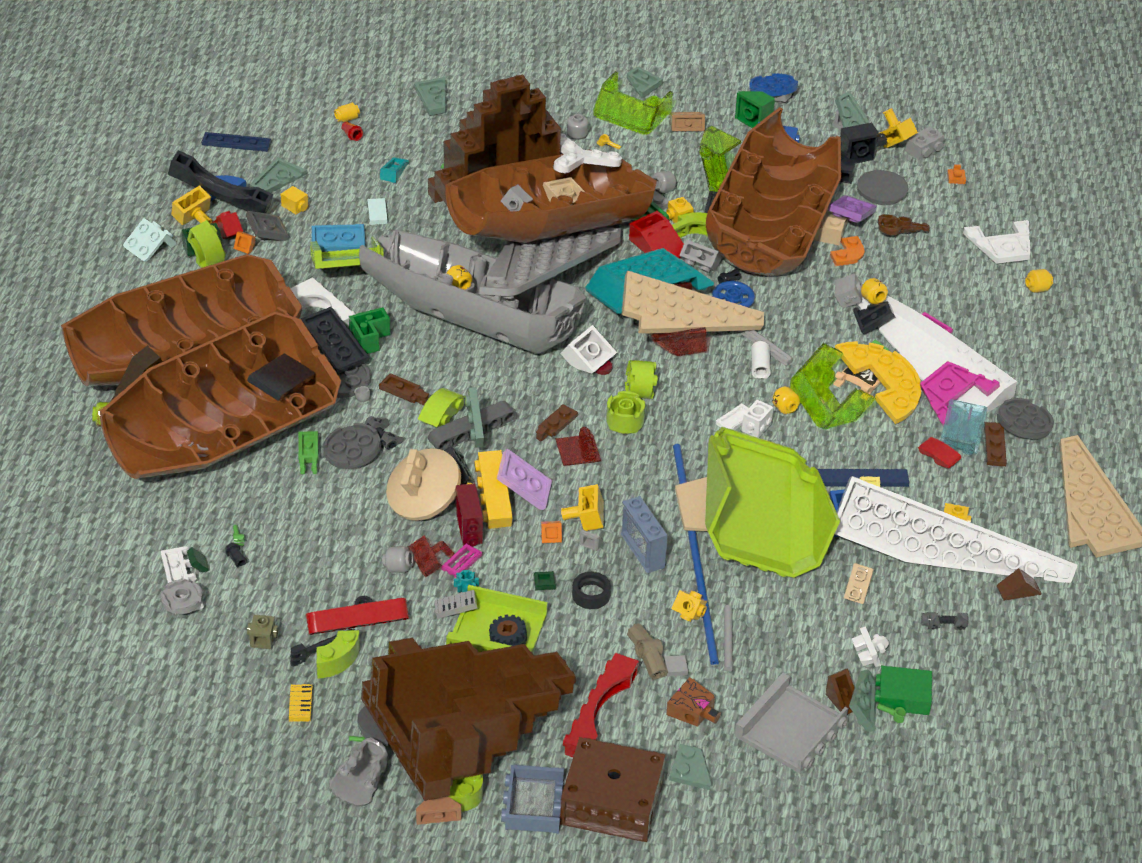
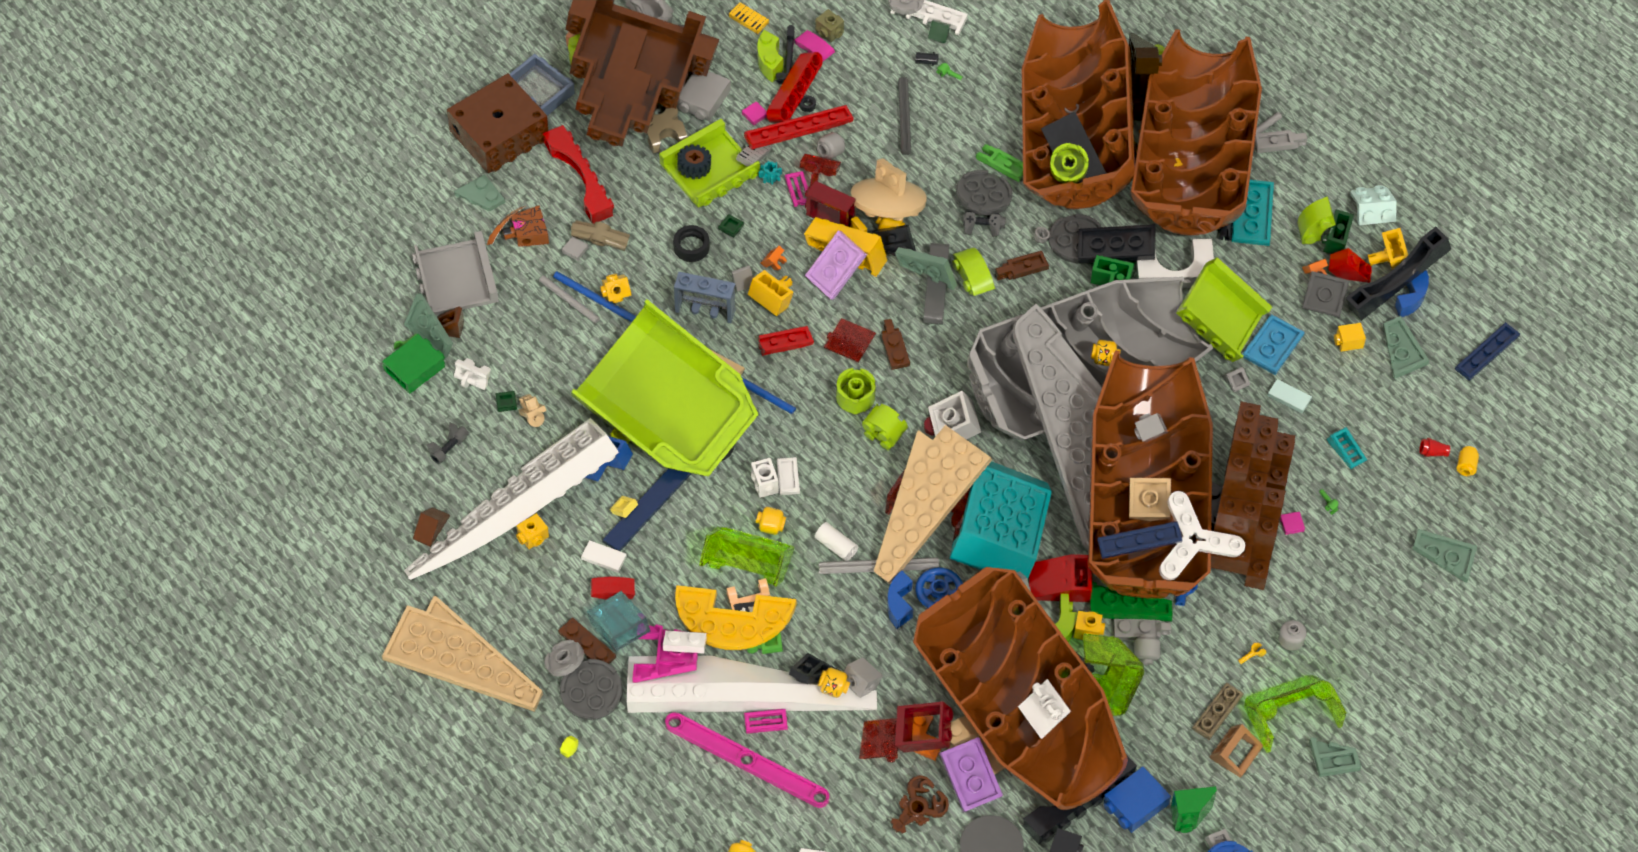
camera: 130 degrees right, 15 degrees up
(292, 634) = (813, 43): none -> dark pink slope
(301, 365) = (1070, 153): none -> lime brick
(314, 537) = (904, 111): none -> dark grey axle
(393, 589) = (798, 127): none -> red tile
(408, 631) = (754, 113): none -> dark pink tile
(613, 170) = (1139, 540): none -> dark blue tile
(621, 482) = (785, 340): none -> red hinge
(668, 139) = (1212, 719): none -> dark tan tile
(704, 727) = (494, 234): none -> orange sticker
(776, 304) = (898, 608): none -> blue brick
(779, 174) = (1044, 708): none -> white hinge
(862, 229) = (904, 726): none -> dark red window
(864, 615) = (506, 401): none -> dark green tile
(876, 263) = (879, 740): none -> clear red hinge
(920, 476) = (603, 556): none -> white tile
(937, 379) = (684, 641): none -> white plate
(967, 309) = (760, 766): none -> dark pink beam
(1016, 449) = (574, 656): none -> light grey tile
(1078, 403) = (569, 746): none -> neon yellow tile

